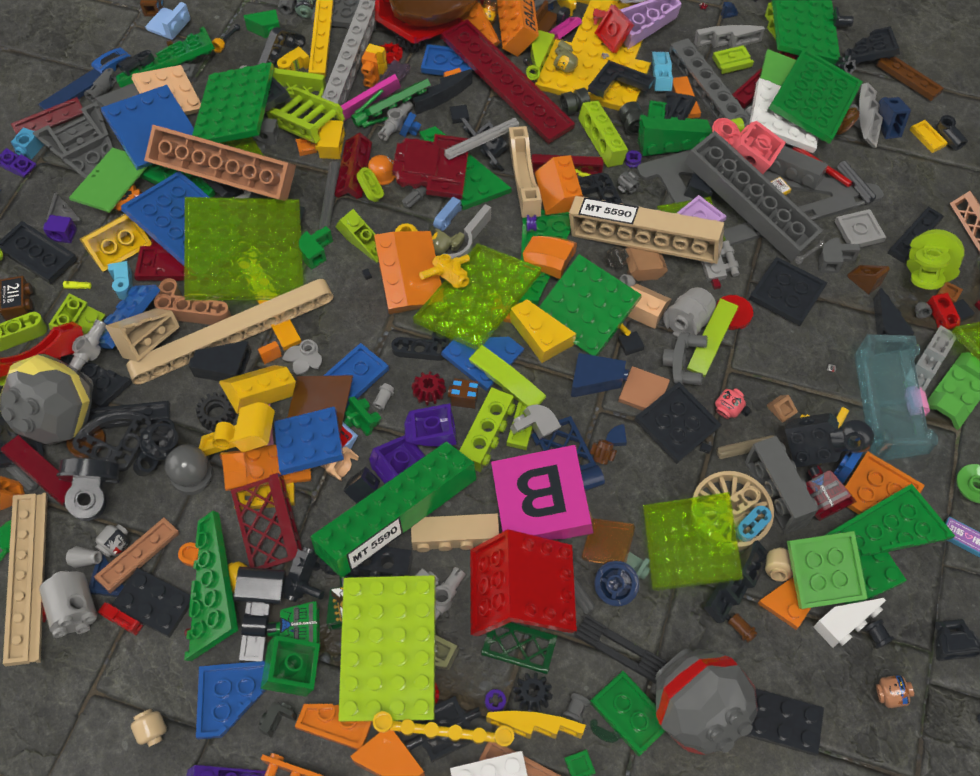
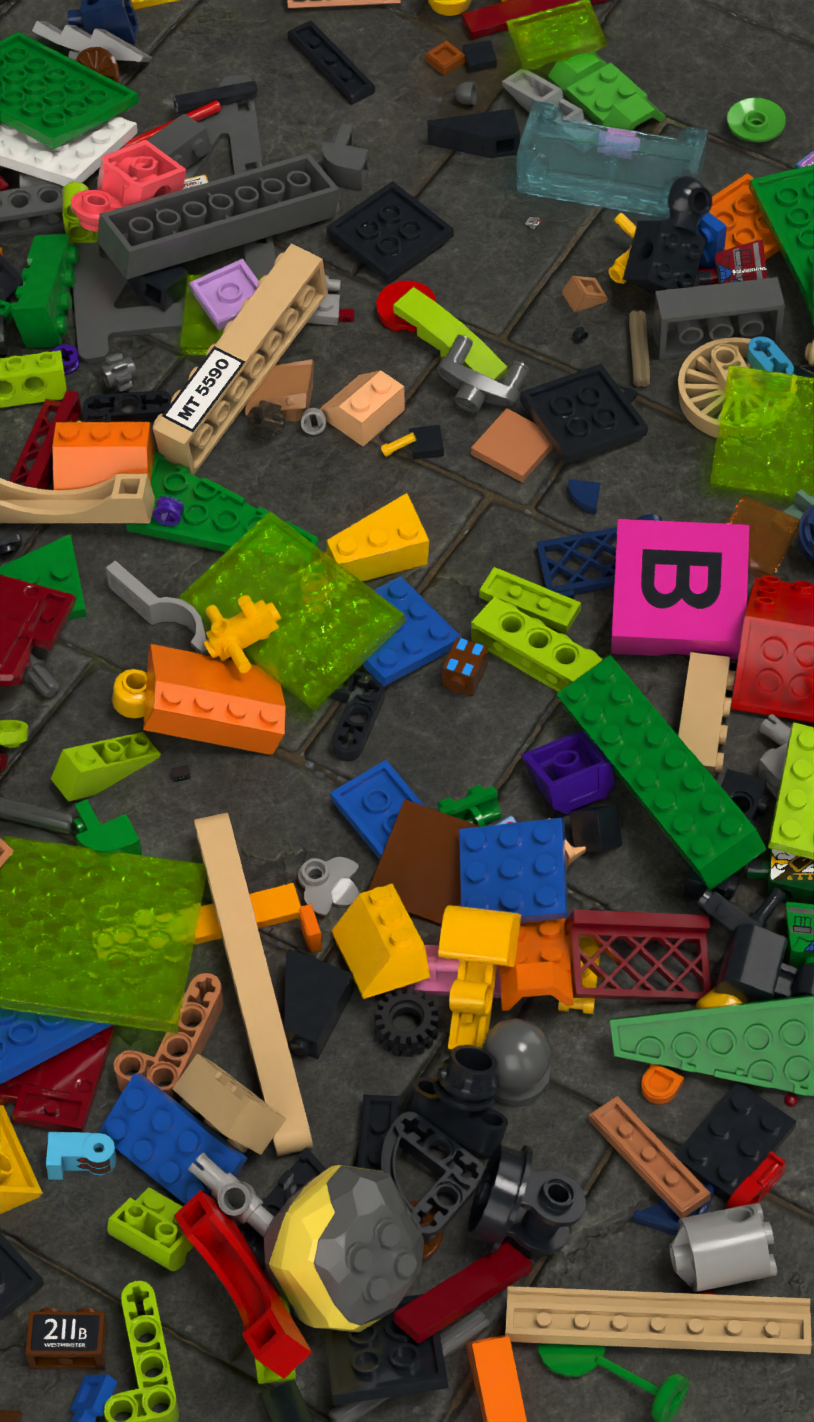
camera: 75 degrees left, 5 degrees down
(76, 285) = (60, 1239): neon yellow pin -> none
(82, 557) = (639, 1235): light grey cone -> none
(112, 540) = (618, 1189): light grey head -> none
(383, 396) = (432, 774): light grey pin -> none
(428, 388) = (442, 712): dark red gear -> none
(431, 426) = (519, 714): dark purple slope -> none
(443, 242) = (162, 633): olive piece -> none
(445, 216) = (97, 631): medium blue piece -> none
(507, 377) = (460, 597): lime slope -> none
(540, 418) = (549, 574): light grey brick -> none
(550, 254) = (240, 496): orange slope -> none
(590, 304) = (351, 466): green plate -> none
(597, 375) = (474, 494): dark blue slope -> none
(603, 451) = (610, 509): reddish brown gear -> none
(690, 312) = (404, 349): light grey piece -> none
(730, 403) = (568, 345): coral head -> none
(860, 228) = (304, 119): light grey plate -> none
(868, 276) = (395, 132): reddish brown slope -> none
(935, 258) = (401, 48): lime piece -> none
(944, 311) = (480, 68): red leg -> none

